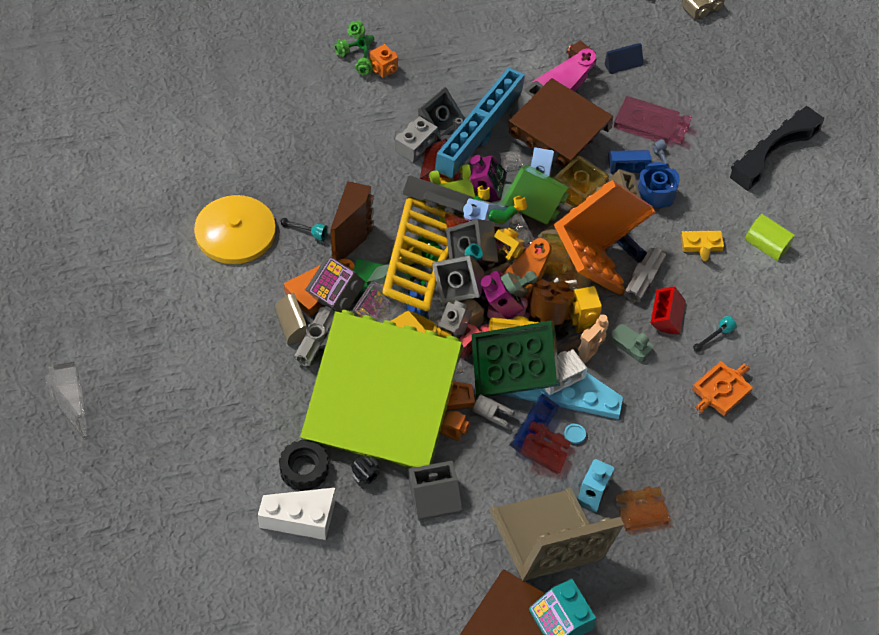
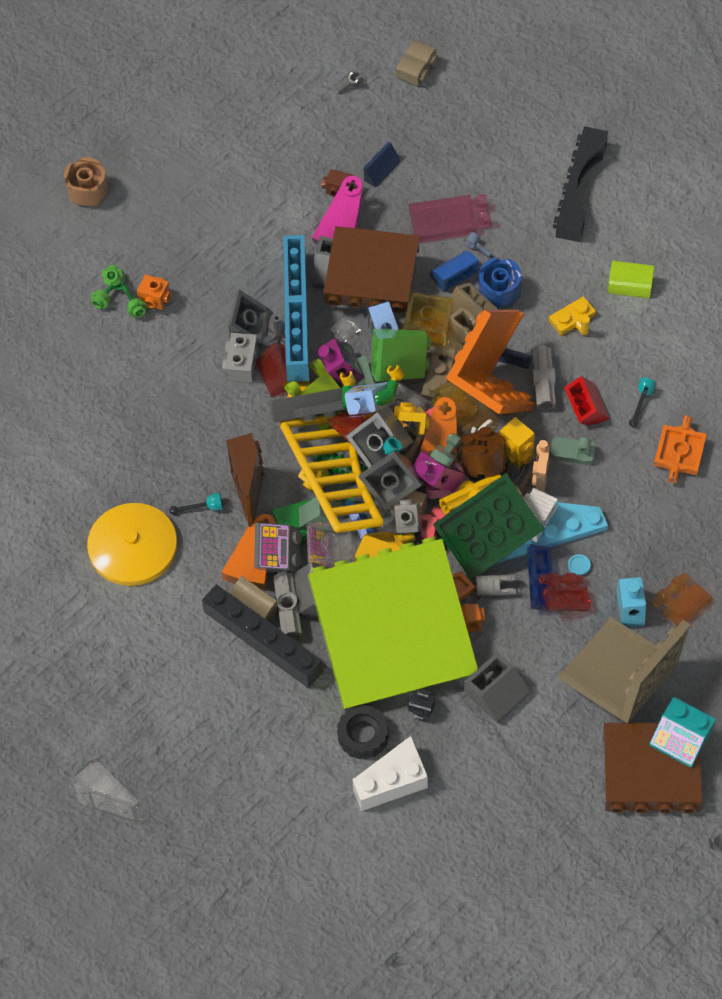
camera: 25 degrees left, 5 degrees up
(279, 348) = (262, 636): none -> black brick

